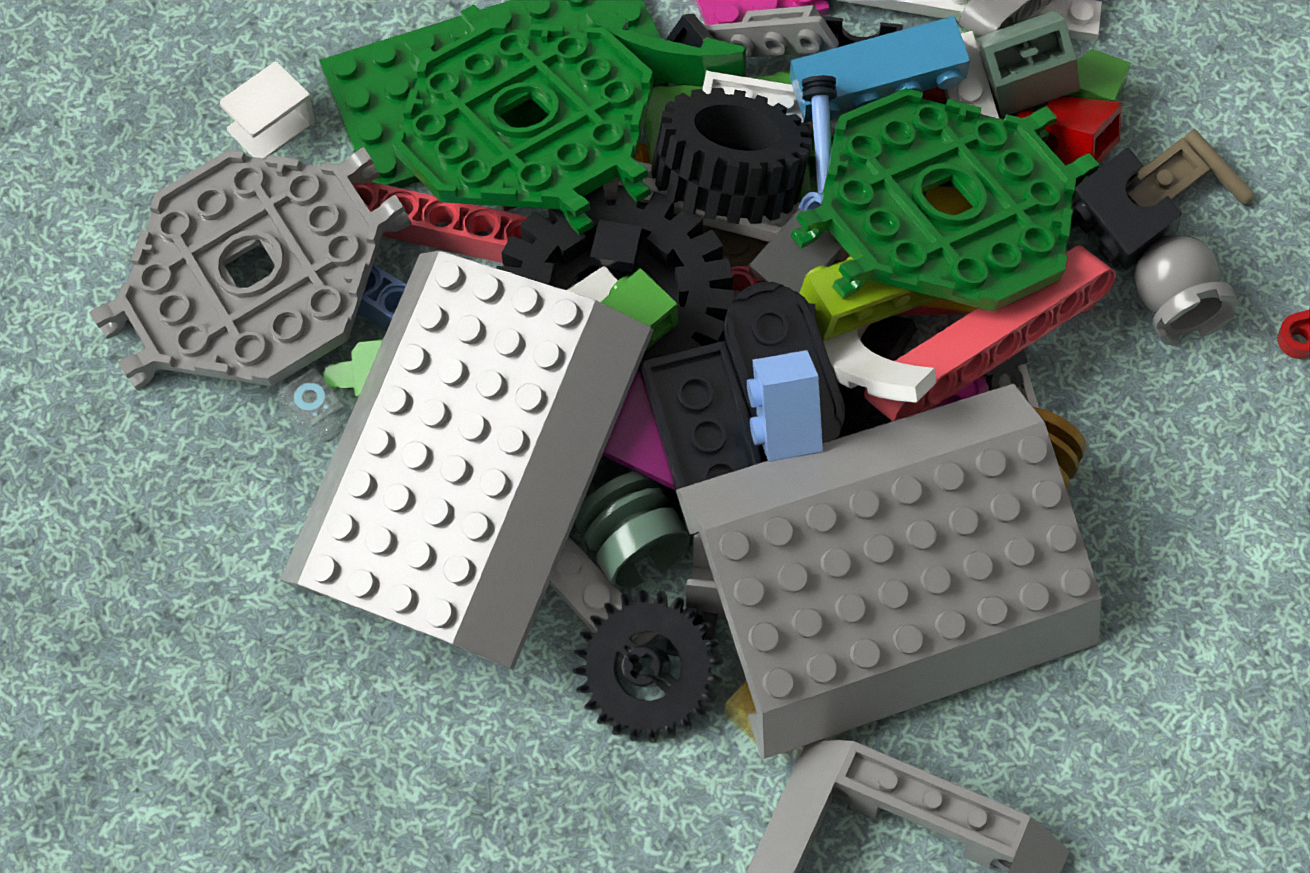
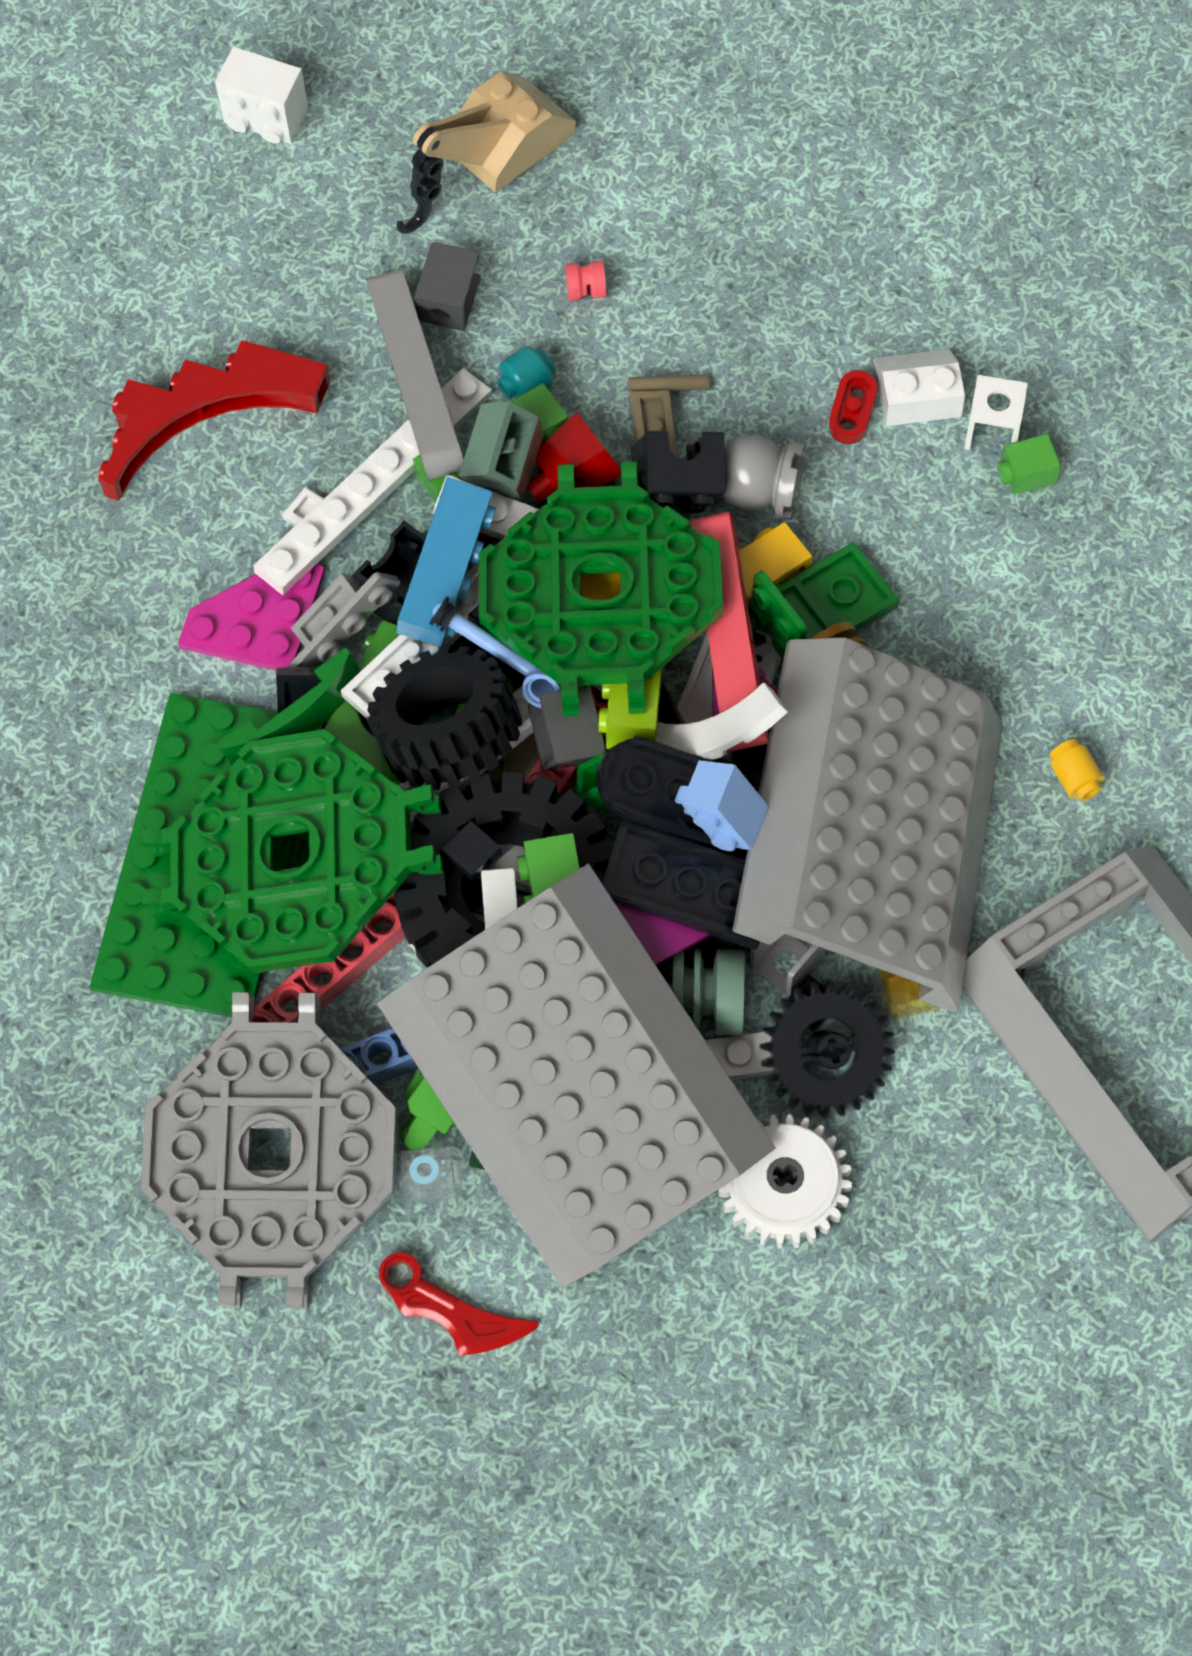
camera: 55 degrees left, 5 degrees up
(198, 525) = (469, 1326): none -> red piece
(268, 111) = (117, 1055): white piece -> none
(498, 738) = (796, 1207): none -> white gear
(1096, 734) = (1076, 770): none -> yellow brick
(1098, 348) = (777, 554): none -> yellow brick
(1119, 422) = (826, 594): none -> green bracket
(1134, 44) = (525, 371): none -> teal head
(1264, 42) = (585, 280): none -> coral wheel

